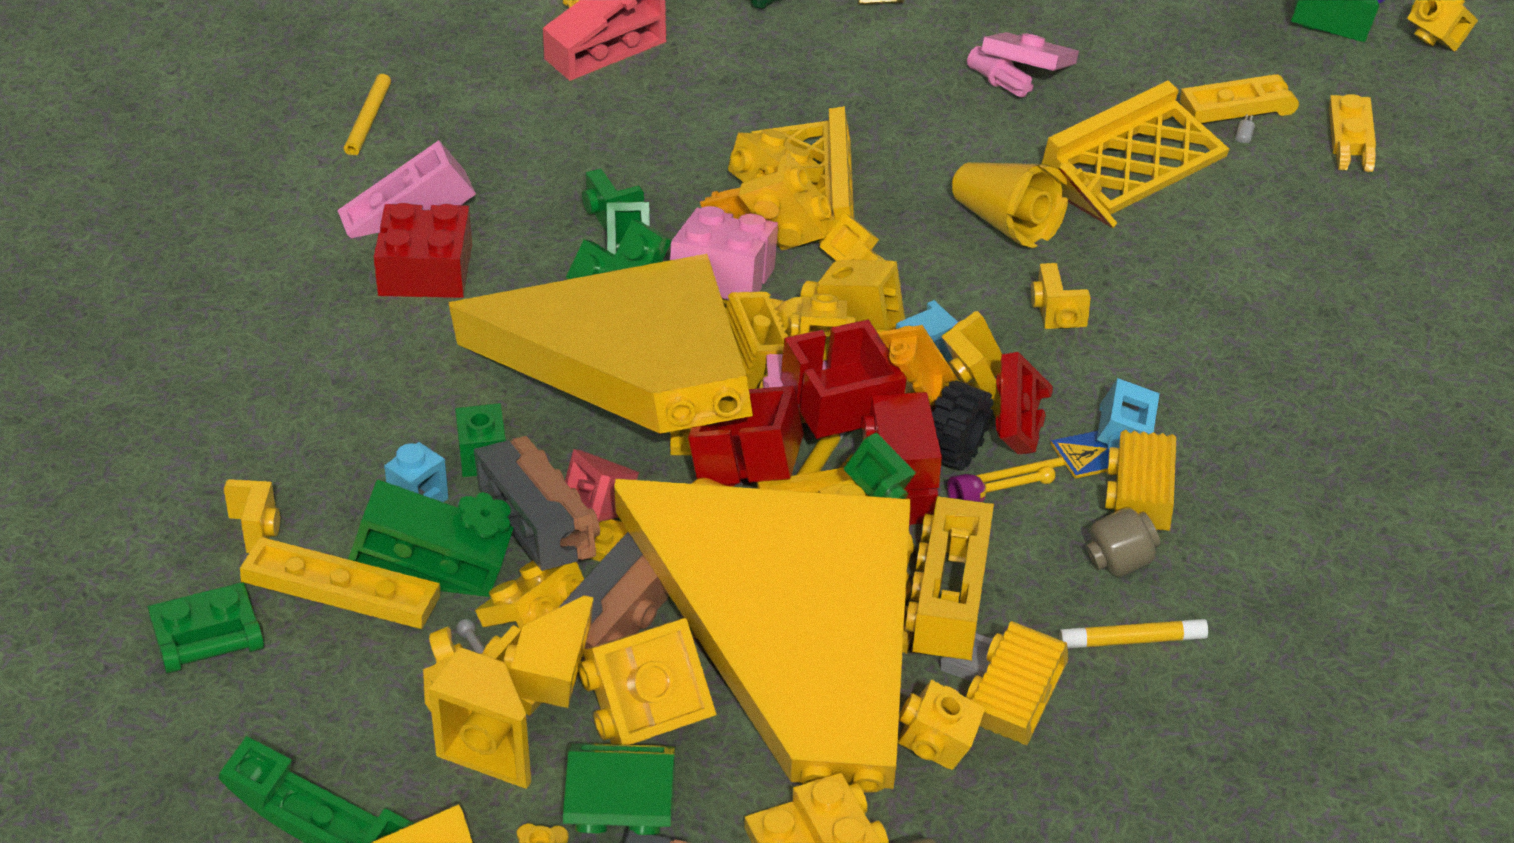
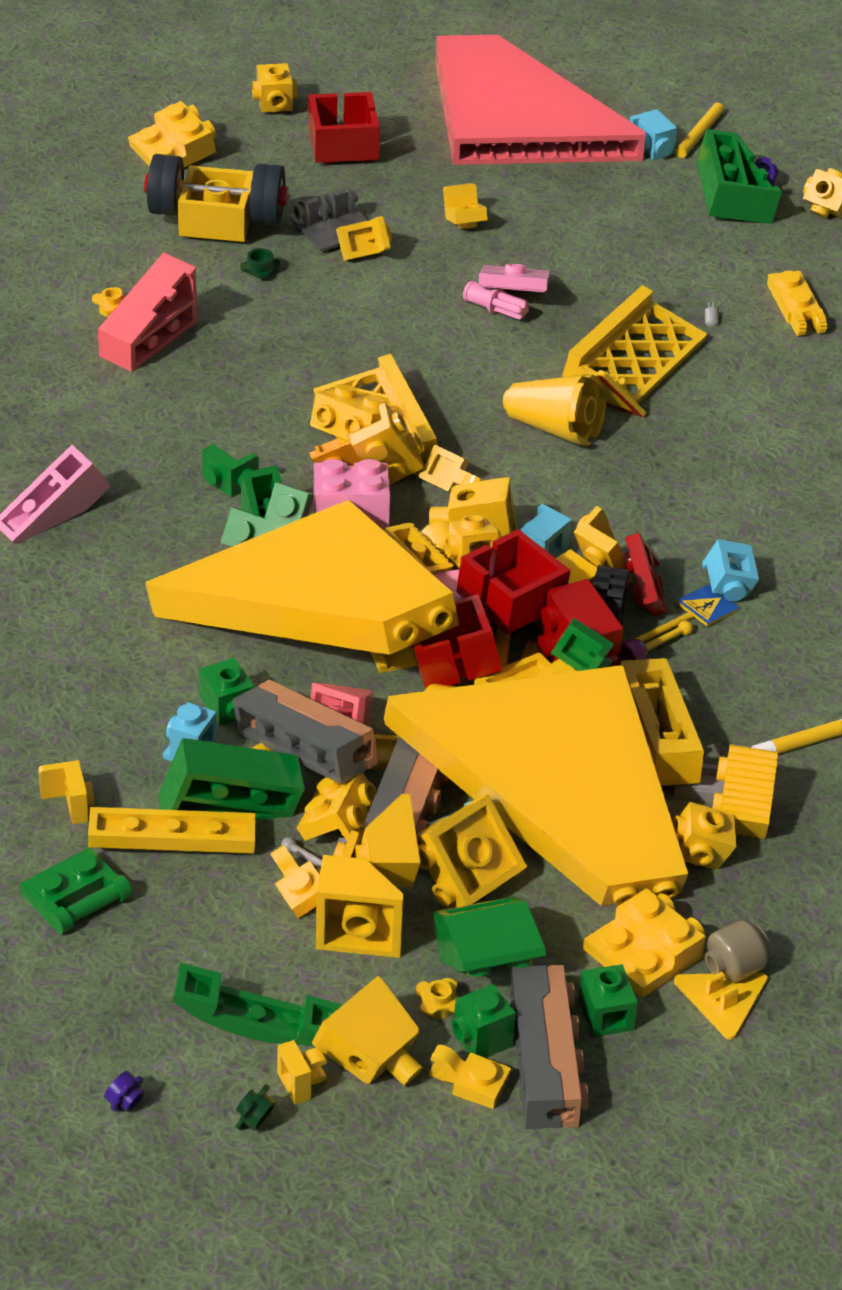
camera: 20 degrees left, 0 degrees up
(423, 250) = (94, 542): red piece -> none
(484, 514) = (276, 749): green plant -> none
(918, 359) = (570, 549): light orange hinge -> none
(1059, 306) = (630, 487): yellow bracket -> none
(1123, 542) = (772, 668): dark tan head -> none
(1143, 476) = (765, 617): yellow brick -> none
(1239, 98) = (698, 289): yellow plate -> none

